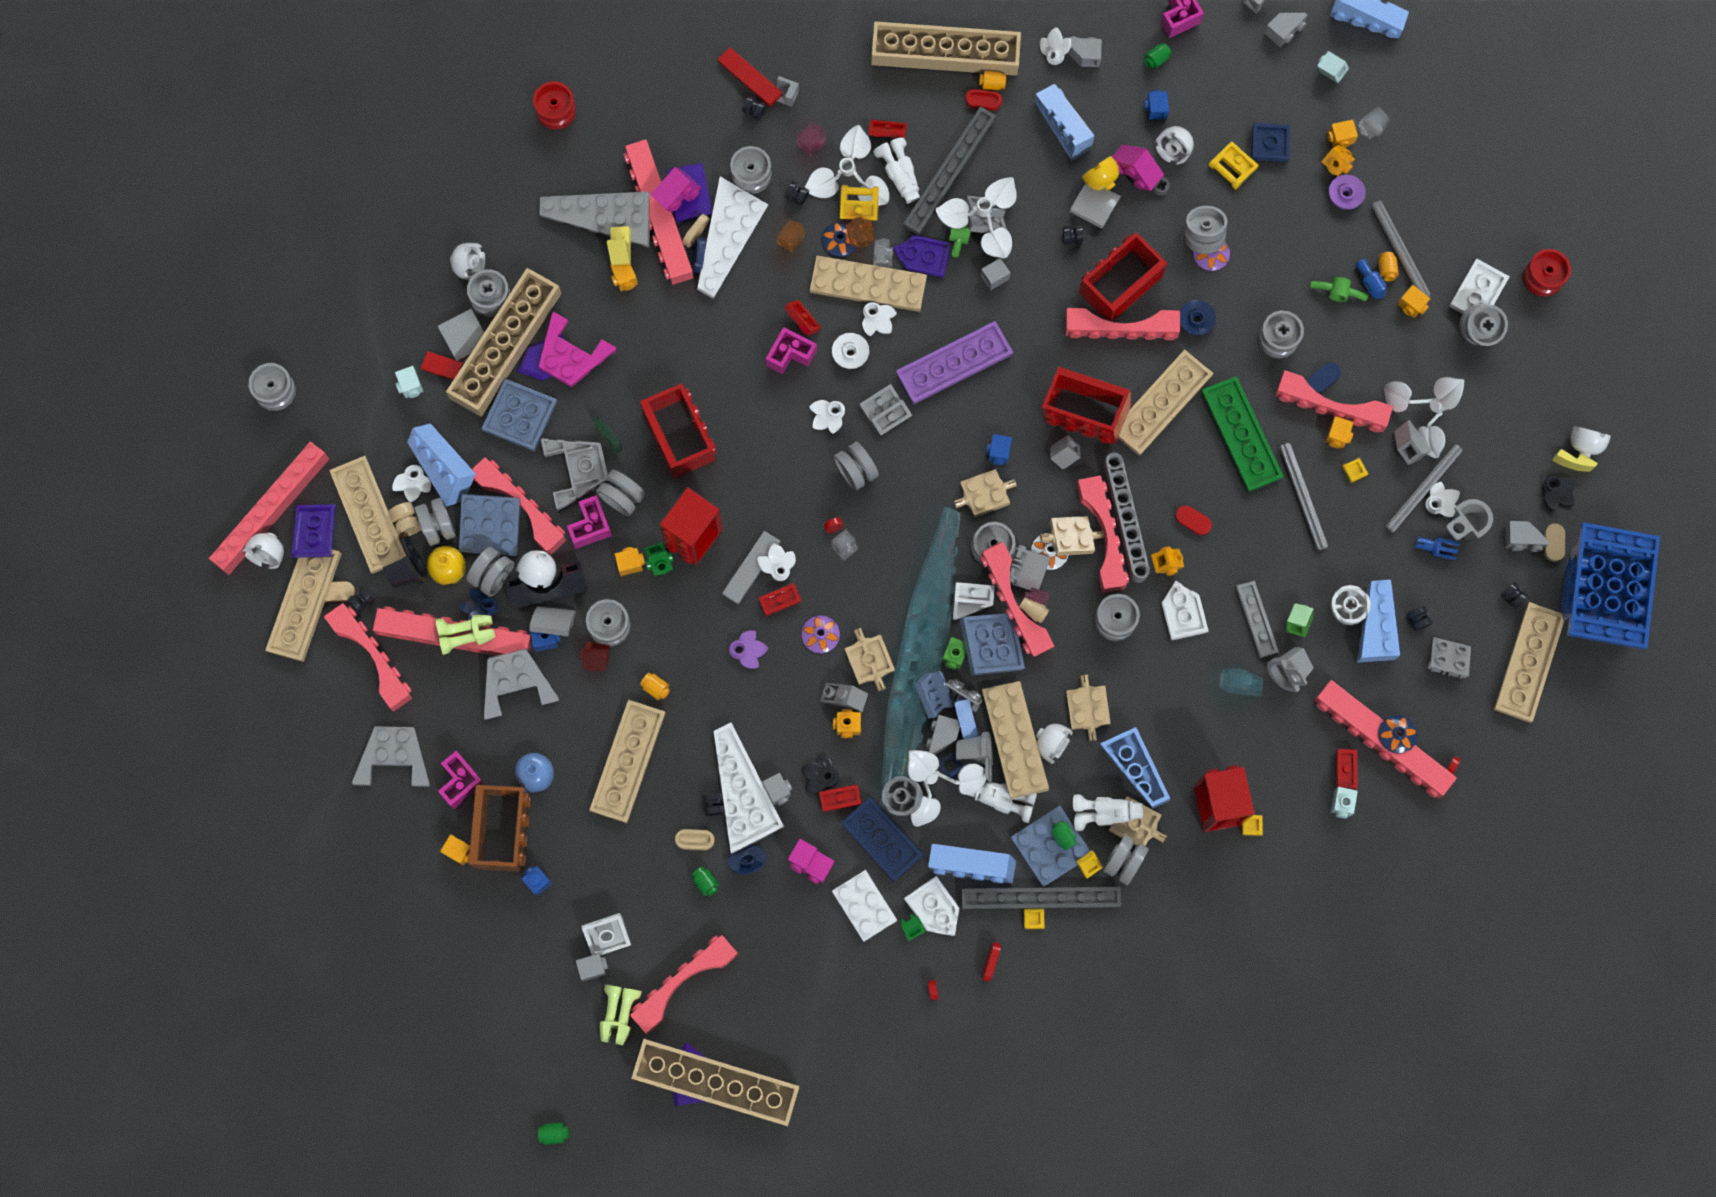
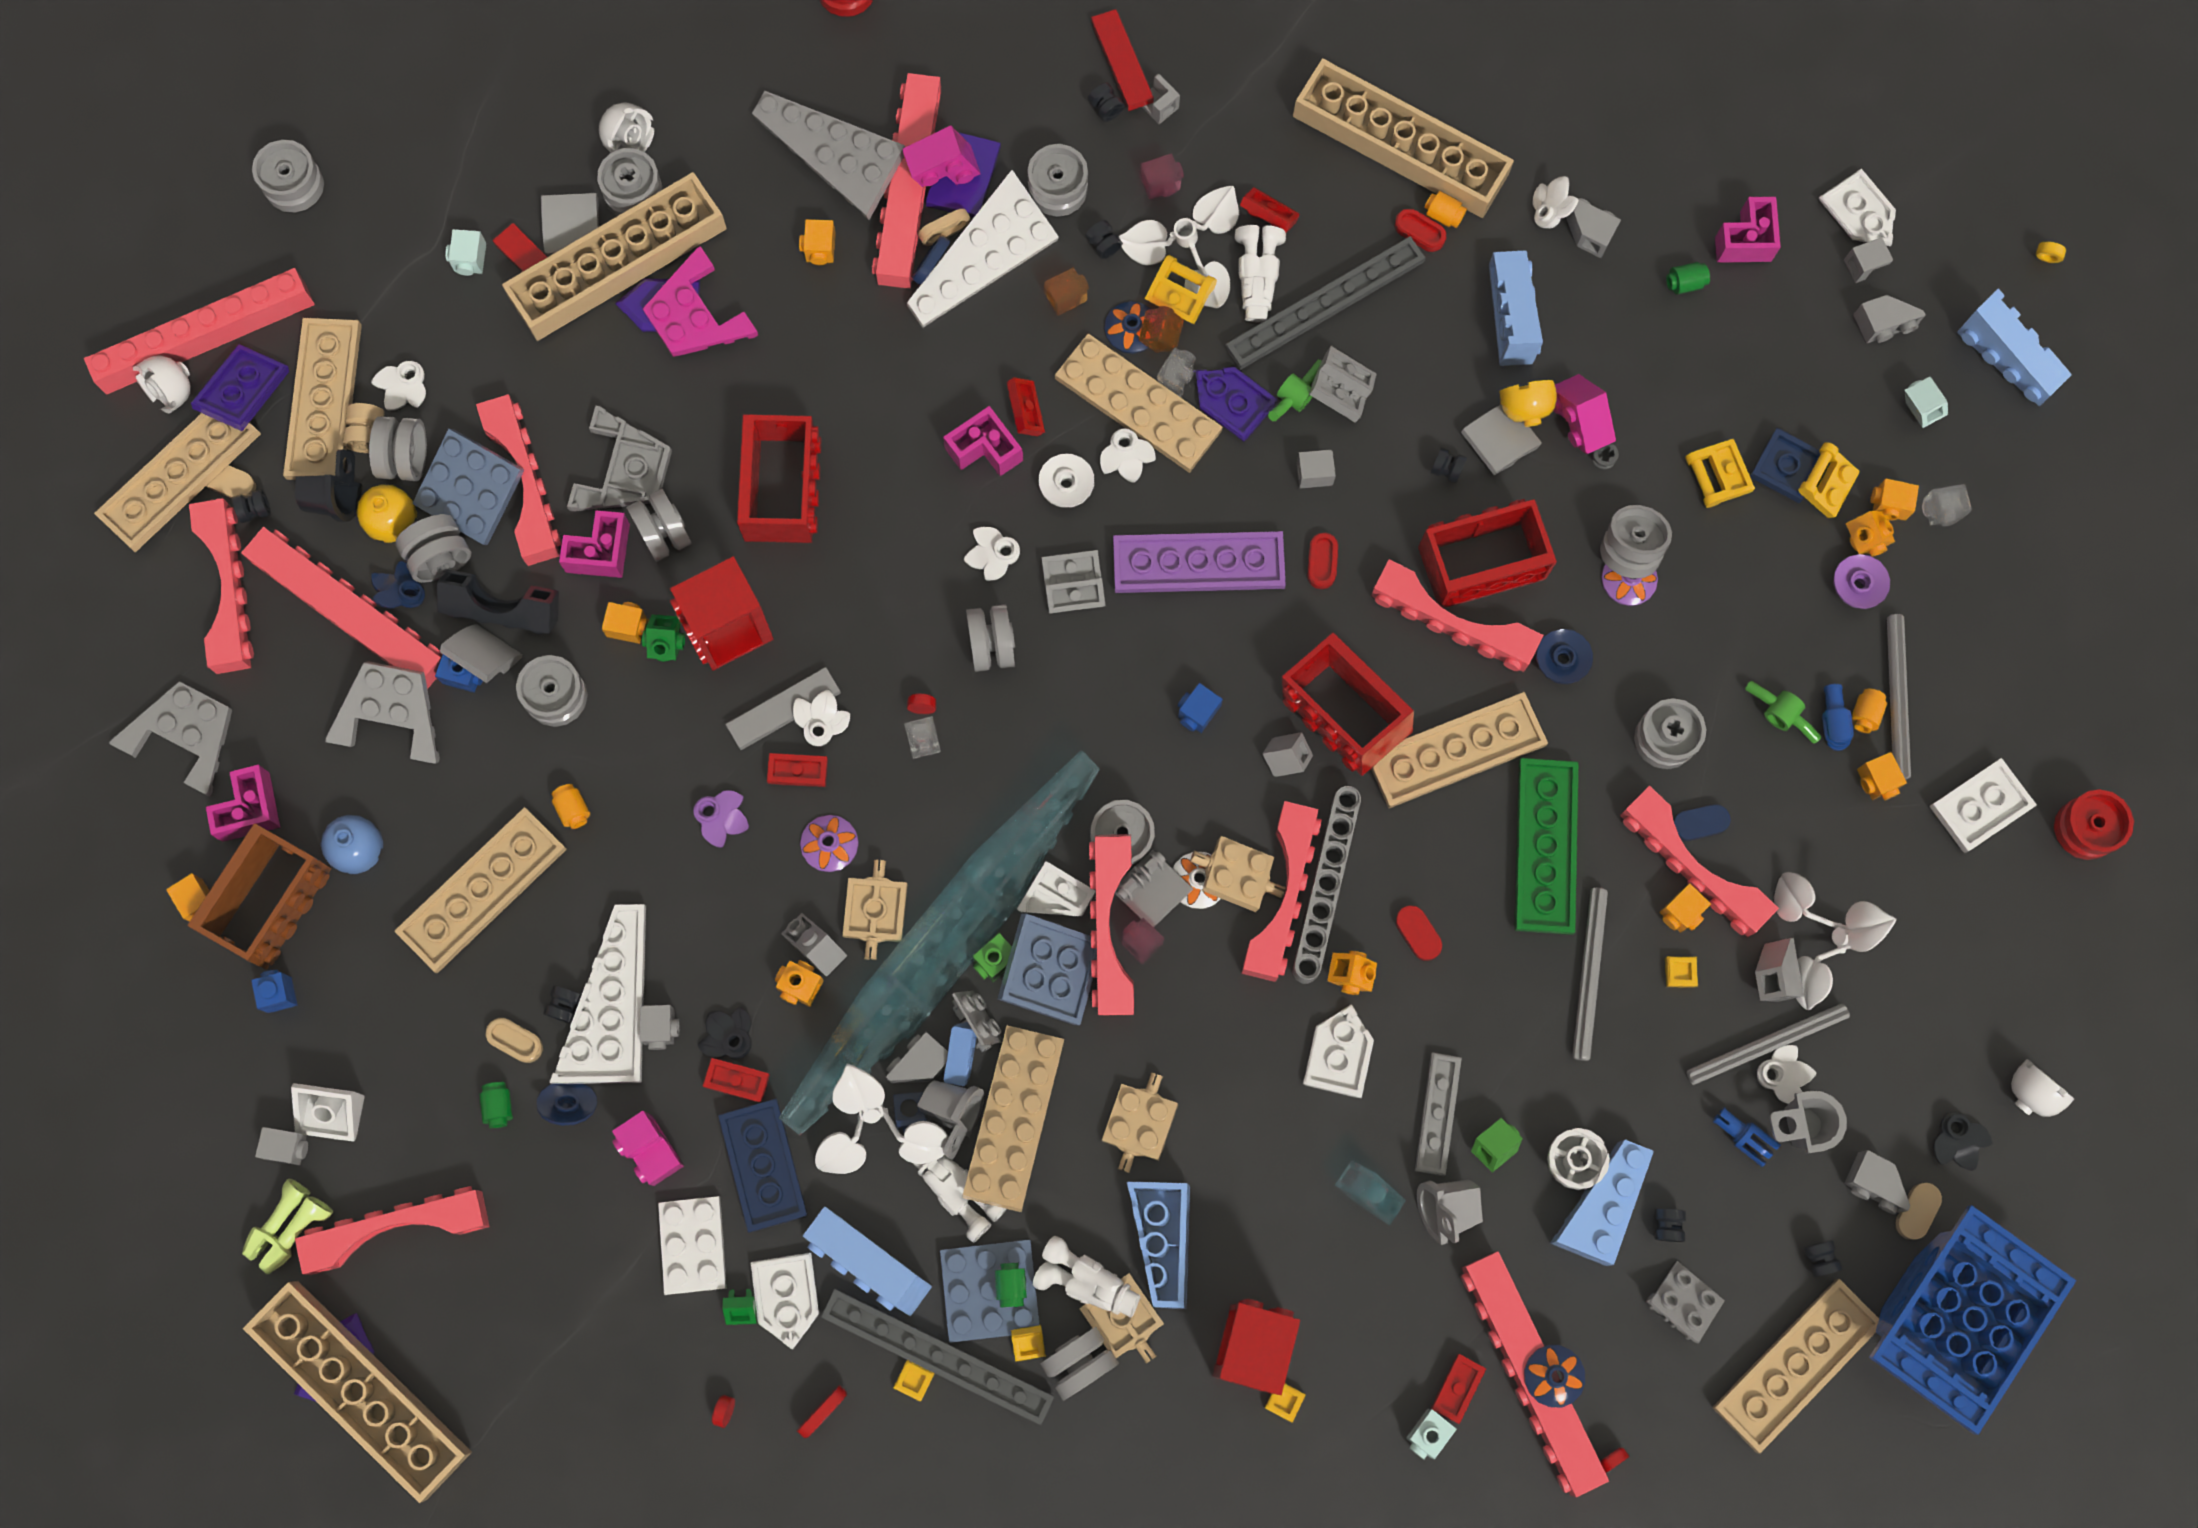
camera: 25 degrees right, 0 degrees up
(441, 463) = (447, 375): light blue wedge -> none
(477, 621) = (329, 595): yellowish green piece -> none
(519, 415) = (586, 361): sand blue plate -> none
(536, 568) = (496, 574): white cylinder -> none
(553, 1133) = (111, 1348): green brick -> none
(595, 656) = (511, 728): clear red brick -> none
(607, 434) = (686, 440): clear green tile -> none
(620, 246) = (829, 199): light yellow slope -> none
(902, 796) = (812, 1121): light grey cylinder -> none
(934, 693) = (933, 999): sand blue bracket -> none
(985, 493) = (1149, 758): tan plate -> none
(1000, 193) = (1303, 358): white plant -> none
(1026, 327) = (1322, 560): none -> red tile
(1034, 610) = (1129, 951): tan cone -> none
(1052, 741) = (1064, 1146): white cylinder -> none
(1120, 606) = (1240, 1034): light grey wheel -> none
(1157, 105) = (1654, 343): blue brick -> none
(1175, 144) = (1651, 407): white cylinder -> none
(1303, 146) = (1835, 483): none -> yellow plate
(1494, 324) = (1978, 867): light grey wheel -> none
(1581, 463) = (2010, 1116): light yellow slope -> none

